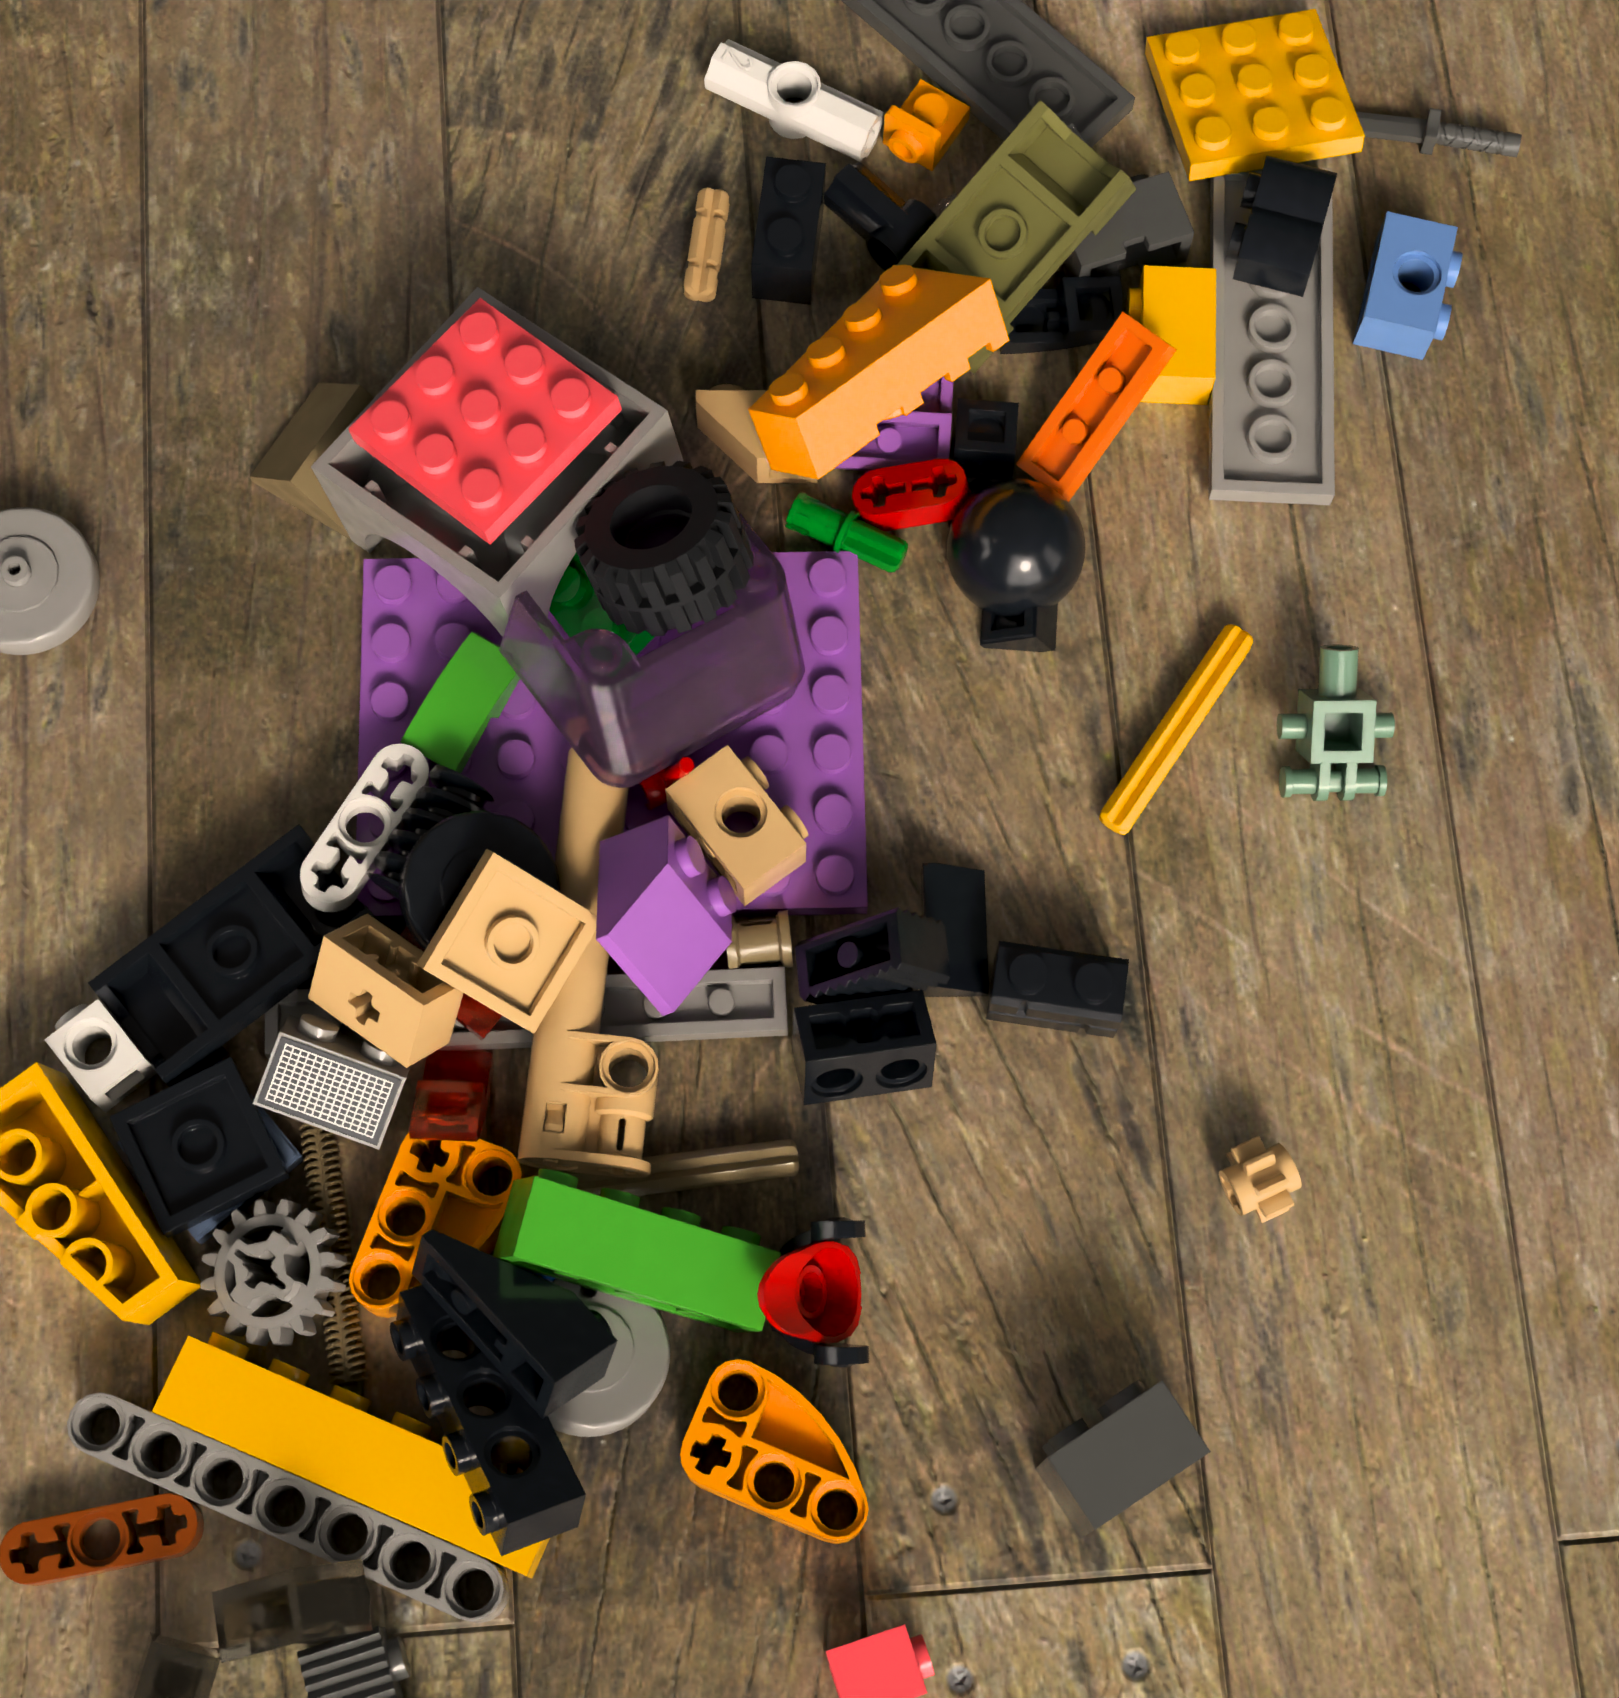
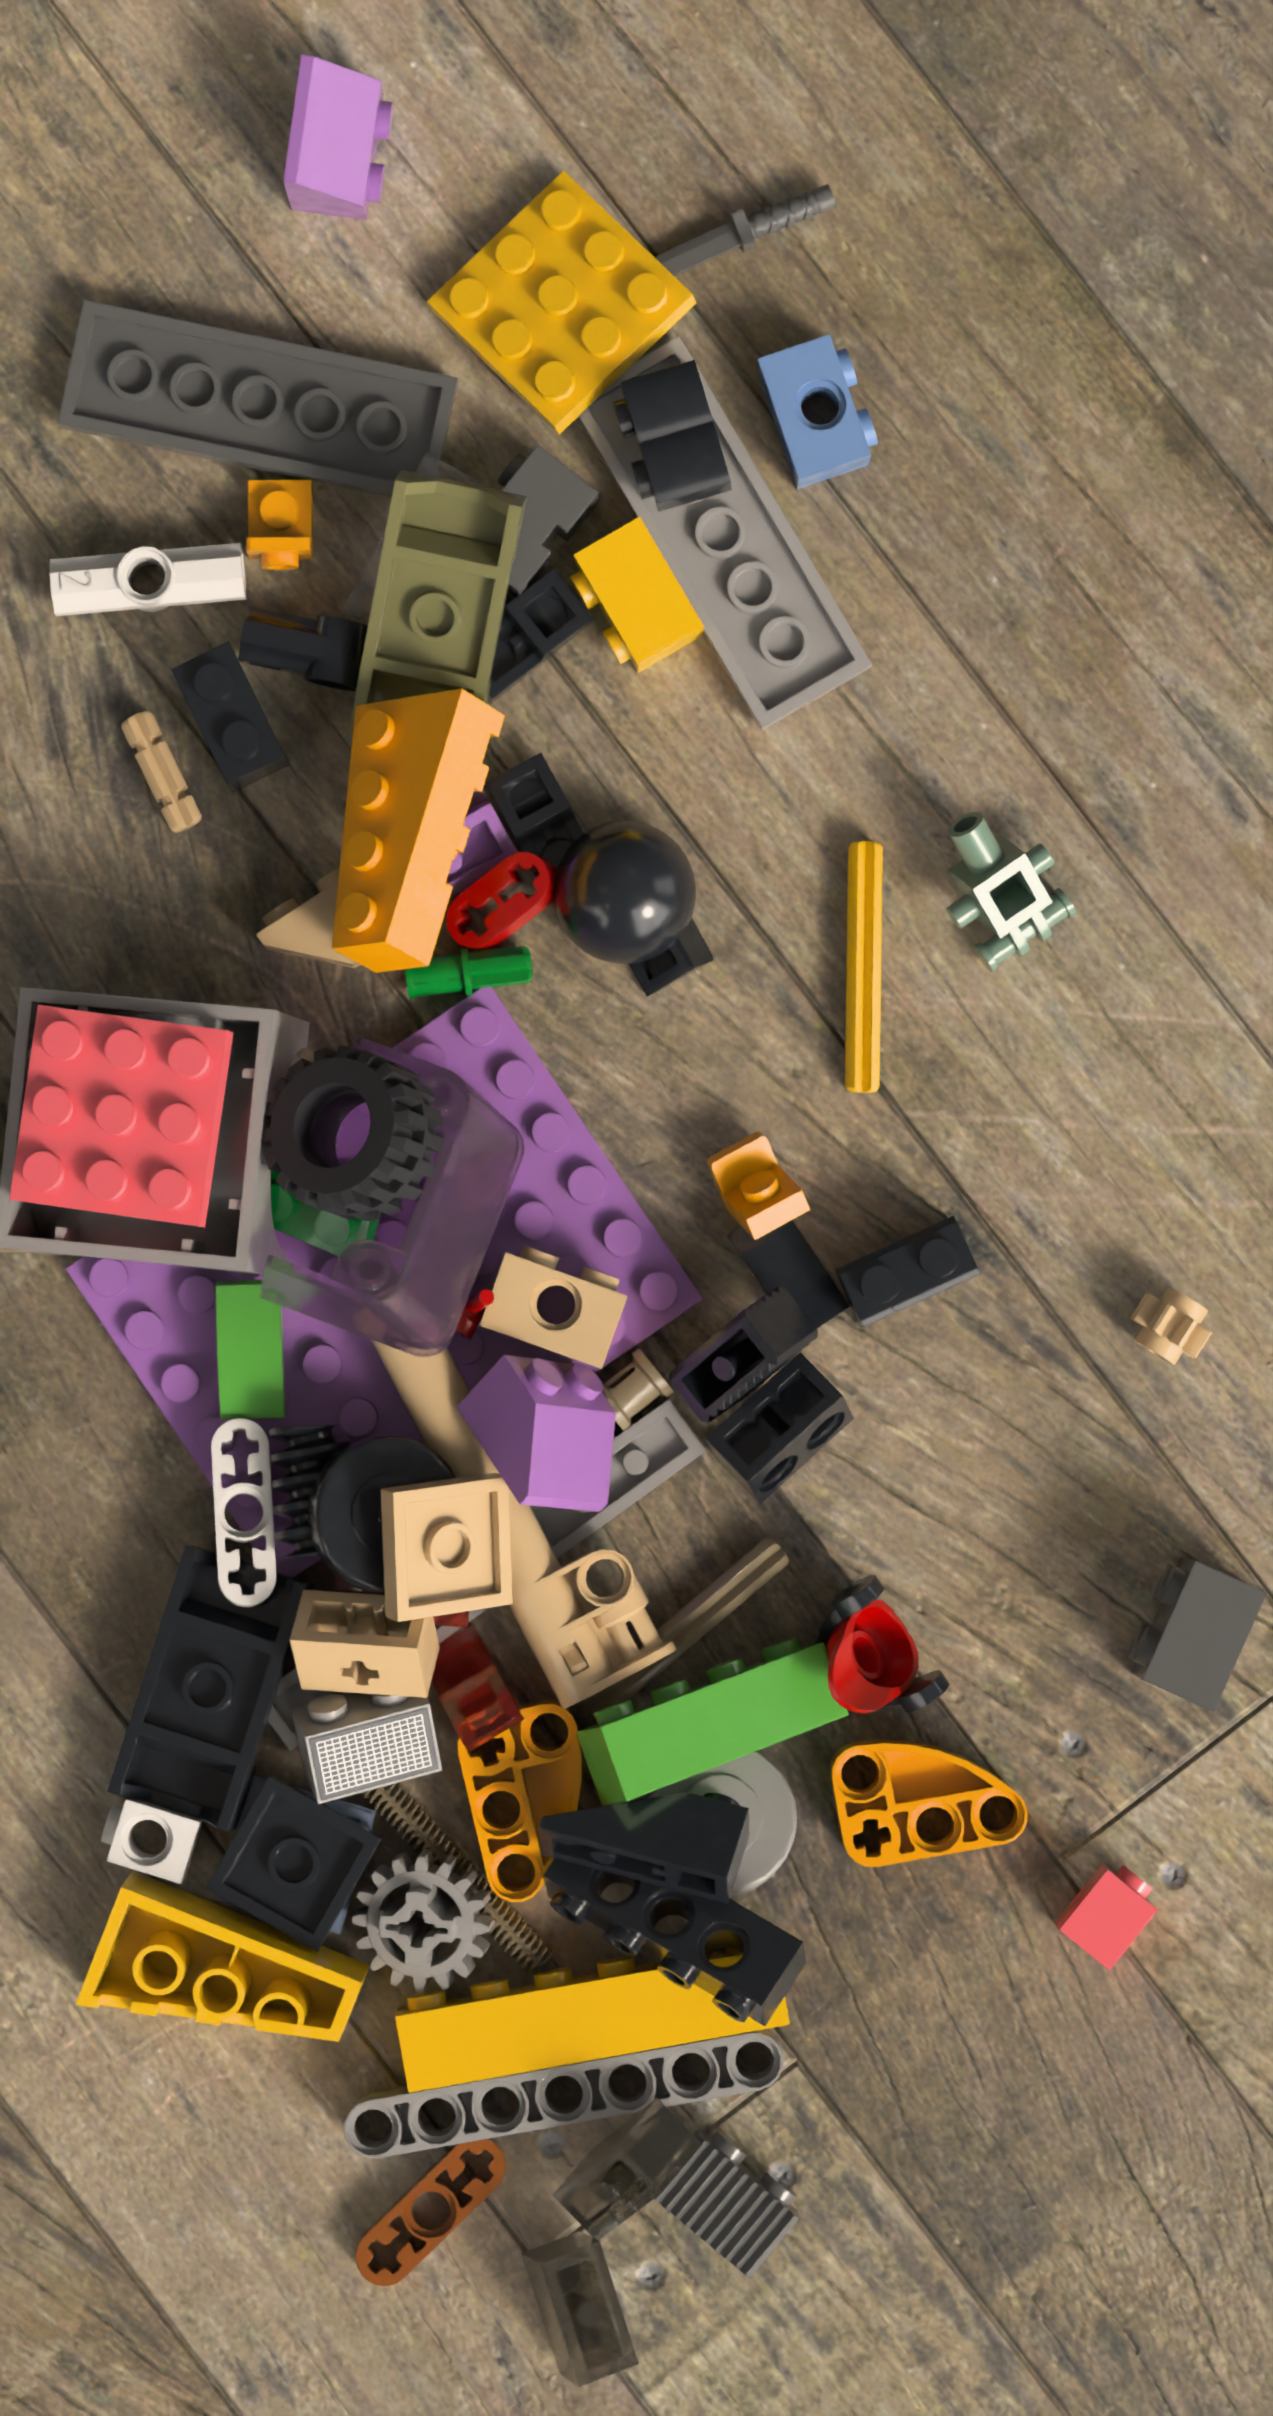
camera: 30 degrees left, 15 degrees up
(972, 837) = (755, 1186): none -> light orange bracket
(1096, 406) = (615, 721): orange plate -> none

